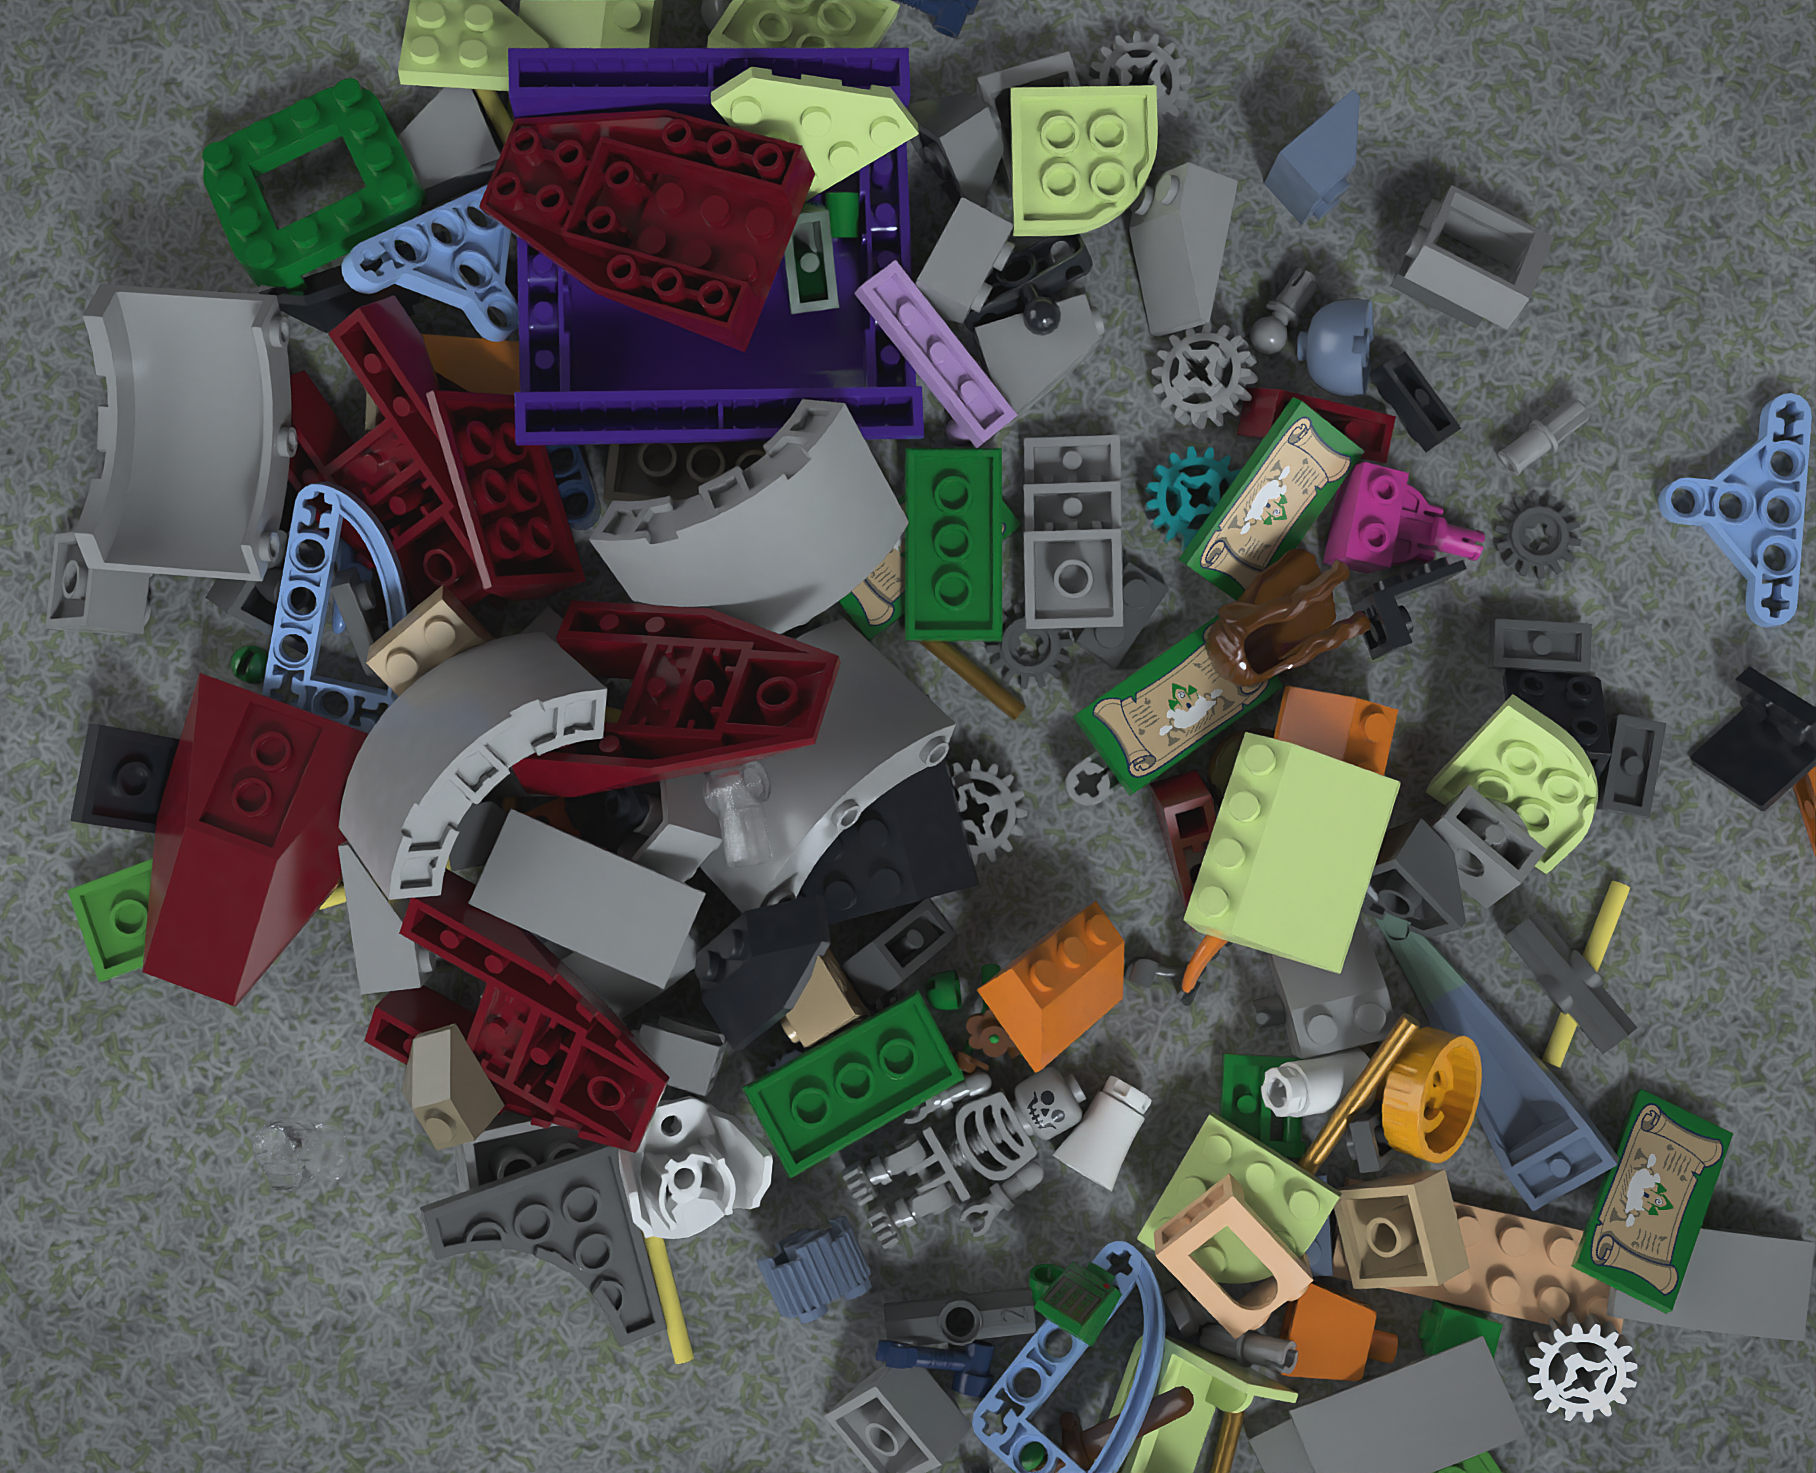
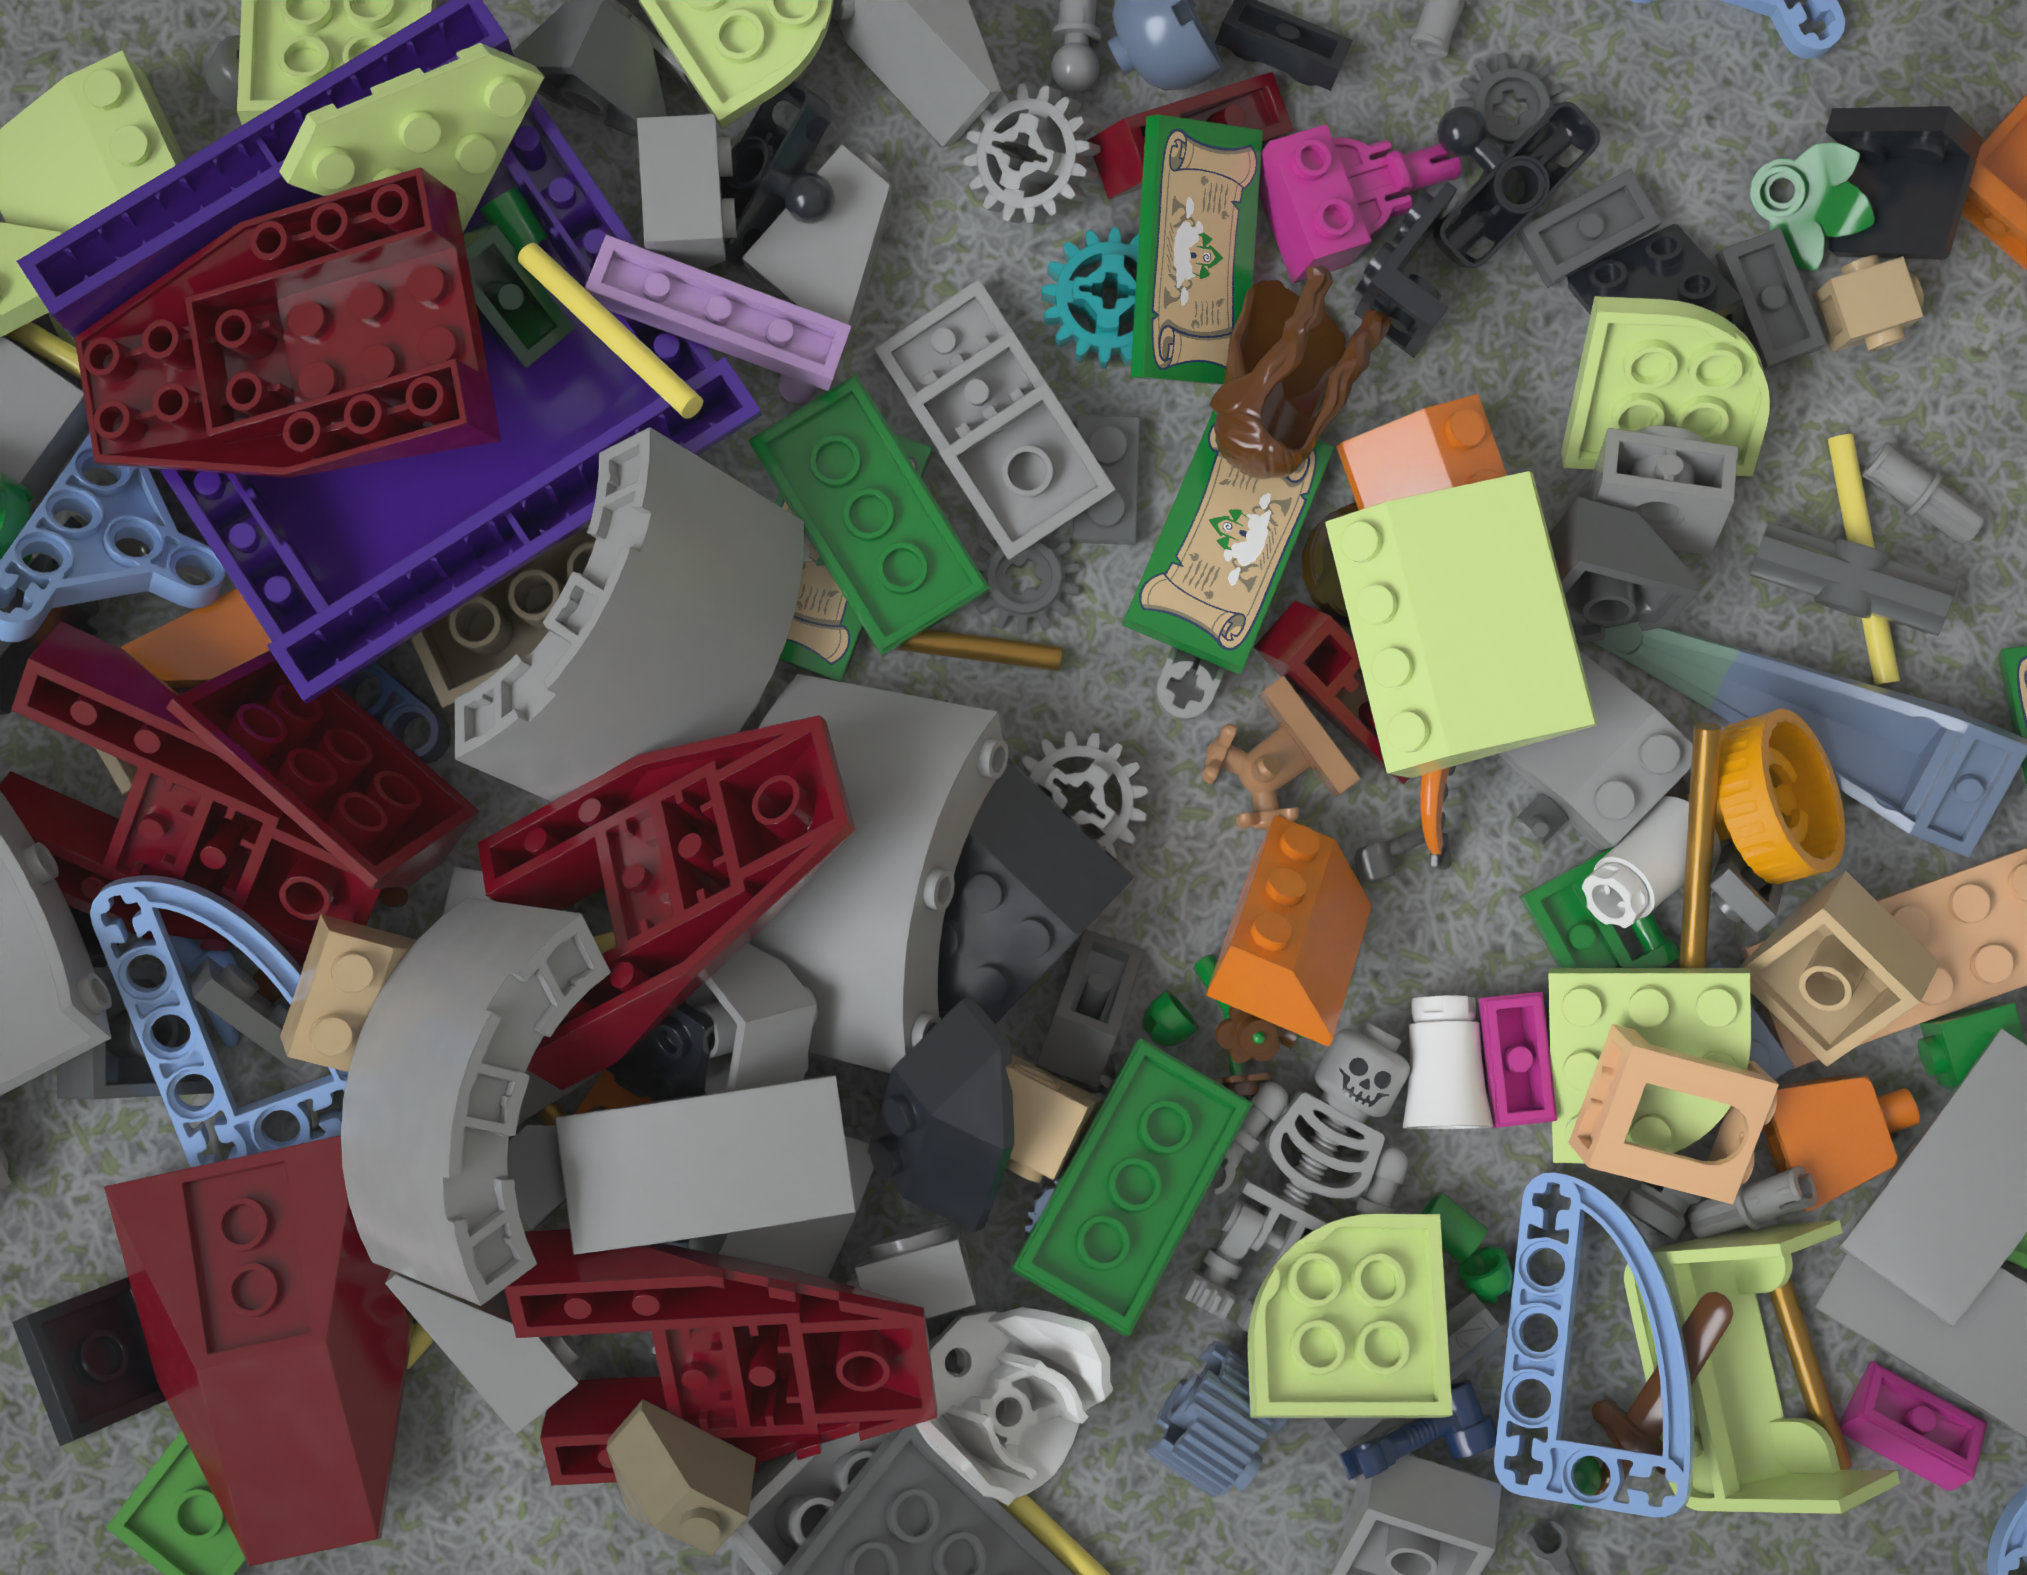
camera: 30 degrees left, 0 degrees up
(256, 668) = (165, 1140): green hinge -> none
(738, 801) = (805, 948): clear piece -> none
(859, 324) = (610, 330): none -> light yellow bar
(941, 1261) = (1354, 1324): none -> yellowish green plate
(1043, 1238) = (1459, 1229): none -> green hinge
(1080, 1301) = (1536, 1270): green slope -> none
(1122, 865) = (1280, 757): none -> medium nougat piece
(1154, 1157) = (1517, 1059): none -> dark pink slope
(1479, 589) = (1484, 205): none -> black piece
(1652, 956) = (1923, 494): none -> light grey axle
(1694, 809) = (1870, 304): none -> tan brick
(1702, 725) = (1821, 204): none -> plate

